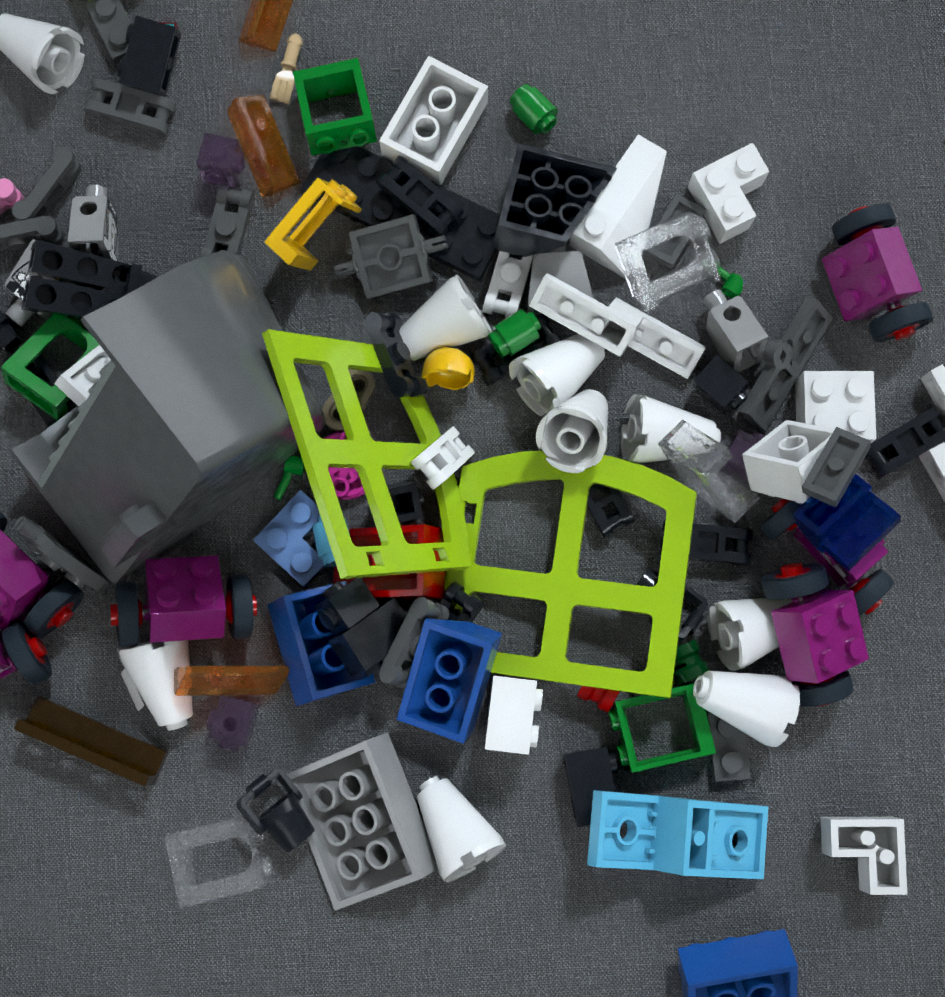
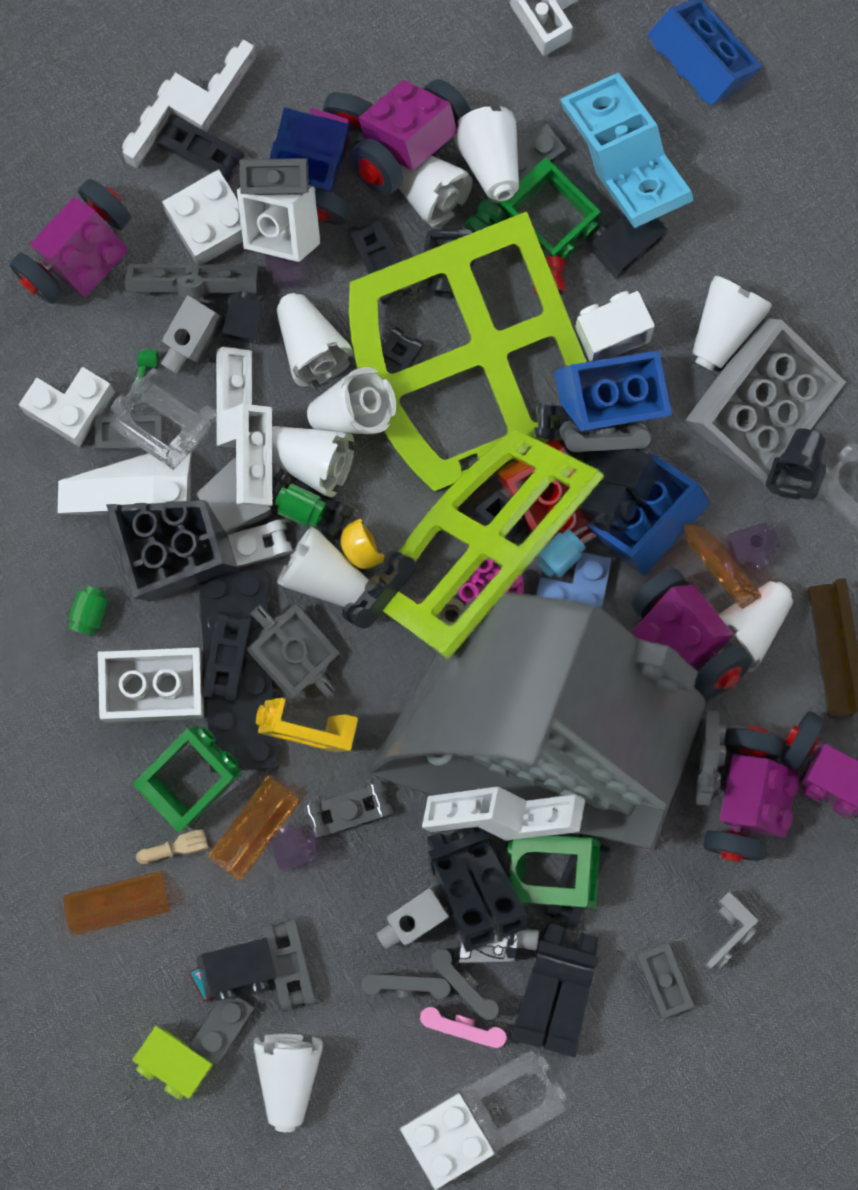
camera: 120 degrees left, 0 degrees up
(132, 690) = (777, 644): white sticker -> none
(442, 458) = (440, 500): white plate -> none
(697, 453) = (325, 281): clear panel -> none

